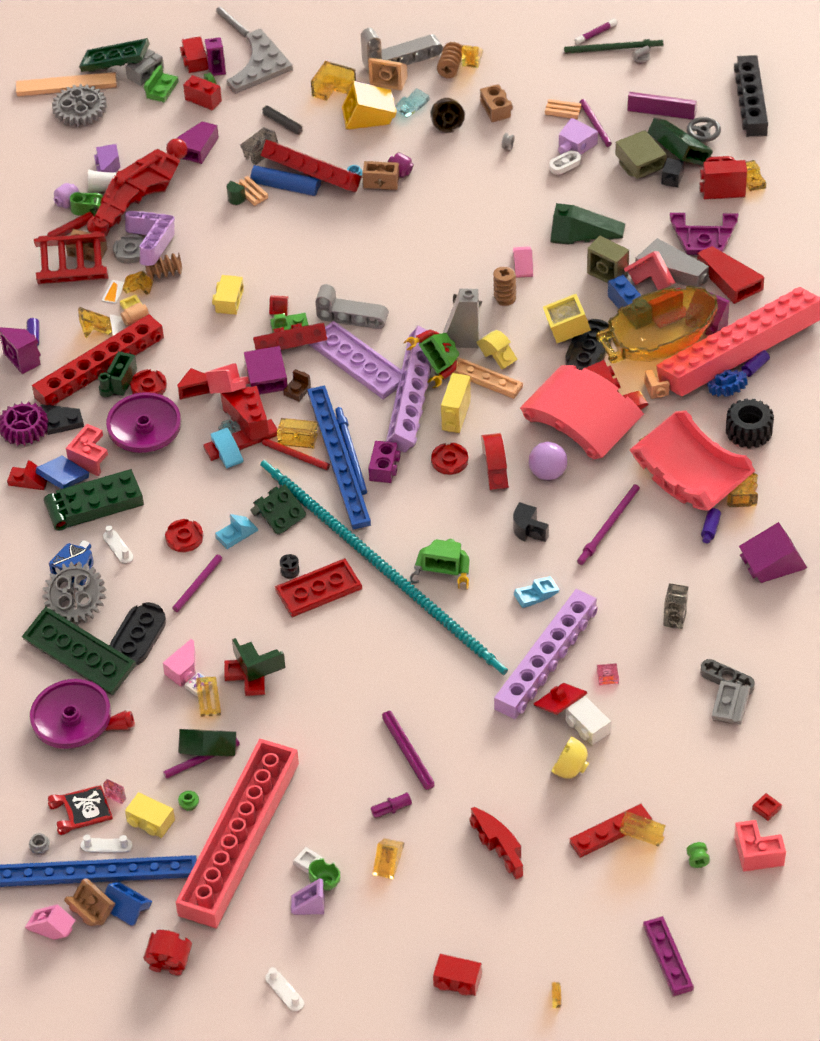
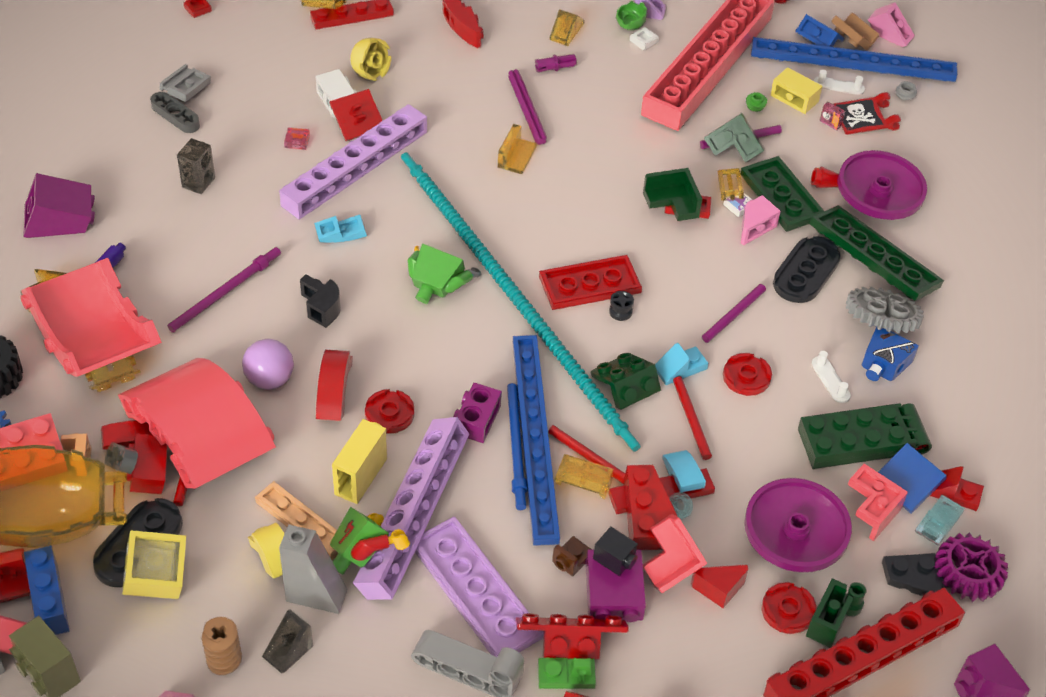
camera: 175 degrees left, 0 degrees up
(43, 451) = (940, 520): none -> clear light blue slope
(161, 698) = (783, 189): none -> dark green plate
(222, 491) = (692, 418): none -> red bar
(267, 368) = (615, 551): none -> black brick
(406, 696) = (515, 152): none -> clear yellow panel
(618, 371) = (121, 458): none -> dark grey beam

